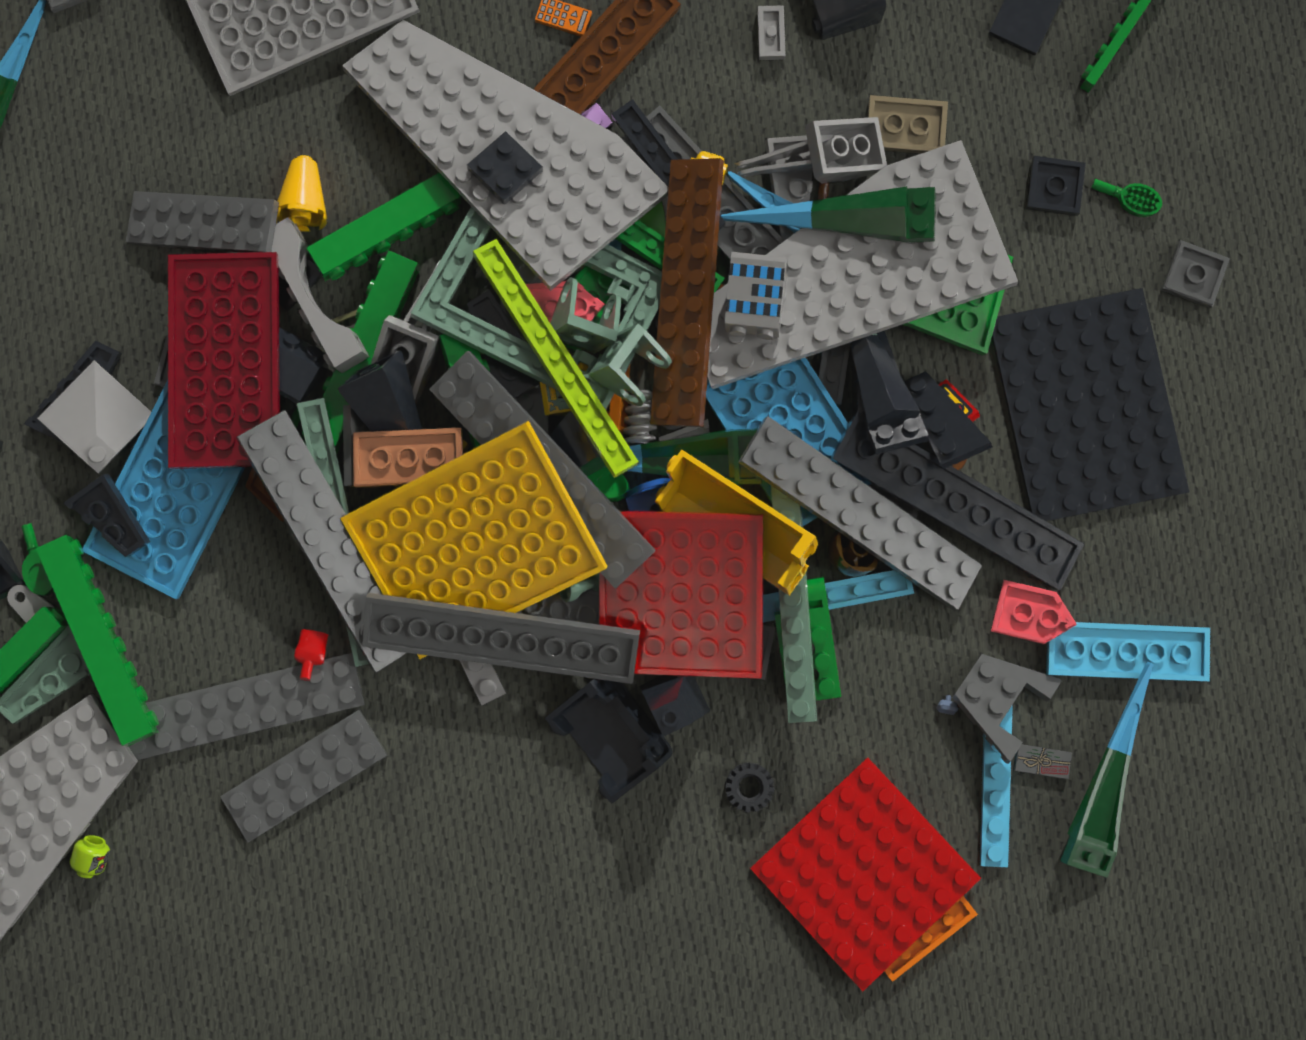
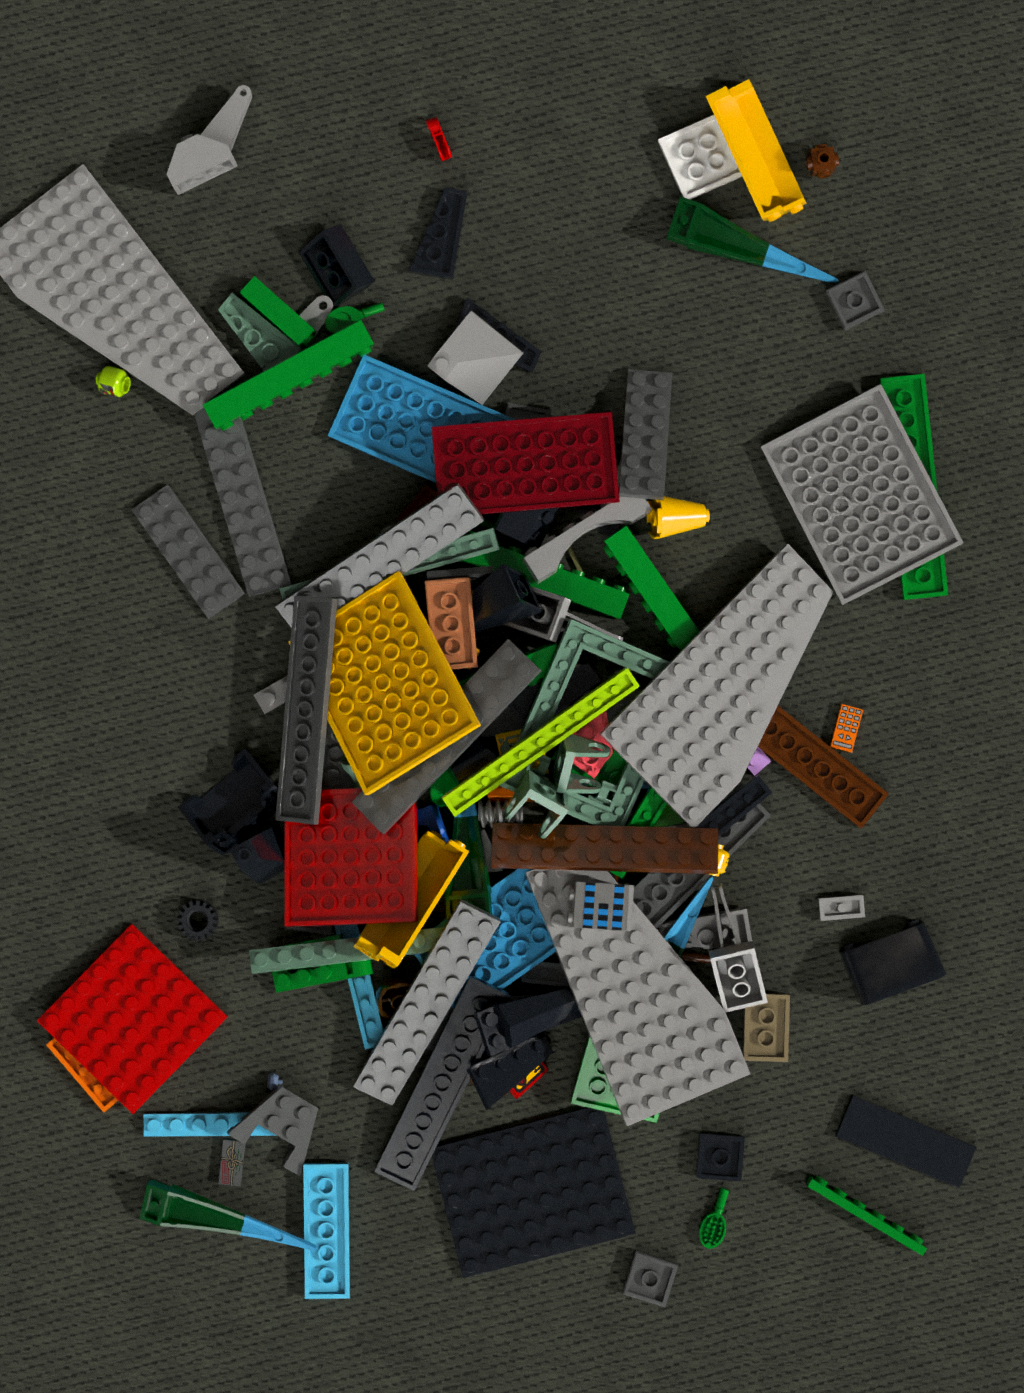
camera: 90 degrees right, 5 degrees up
(109, 513) = (395, 376): black wing -> none
(310, 651) = (290, 550): red piece -> none
(504, 167) = (702, 689): black plate -> none
(888, 214) = (679, 1012): dark green plate -> none
(1030, 613) = (353, 1148): coral tile -> none

